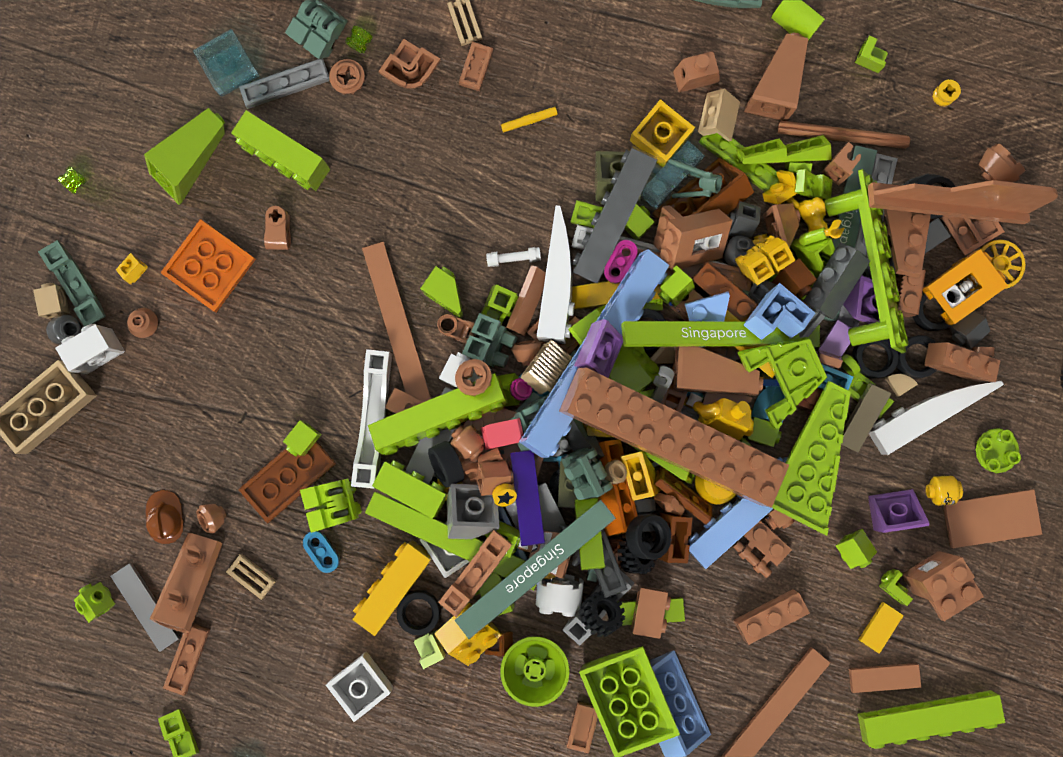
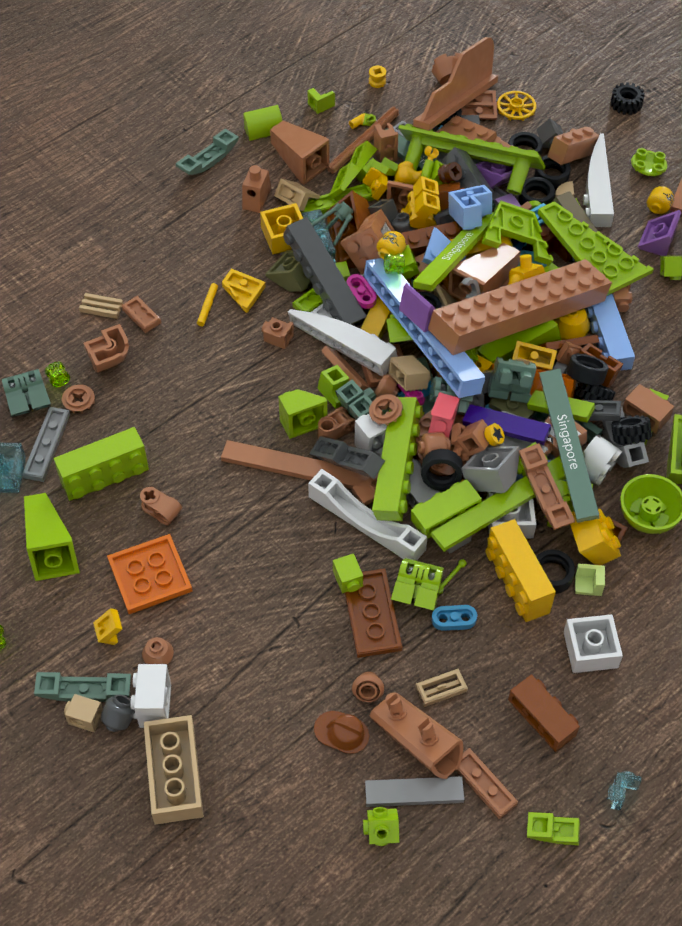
camera: 60 degrees left, 30 degrees down
(274, 676) = (544, 712): none -> dark orange brick
(383, 526) = (461, 564): none -> lime hinge
(418, 357) = (347, 457): none -> dark grey slope
(532, 254) = (297, 376): white bar -> none
(533, 216) = (278, 332): none -> nougat brick
(566, 141) = (243, 288): none -> yellow wing
(653, 282) = (394, 263): none -> clear neon green wheel
(675, 265) = (391, 243): none -> yellow head
(767, 543) = (639, 319): nougat plate -> none
(819, 264) = (450, 172): none -> reddish brown wheel
(872, 117) = (363, 119): none -> arm
(977, 276) = (520, 118): light orange brick -> none

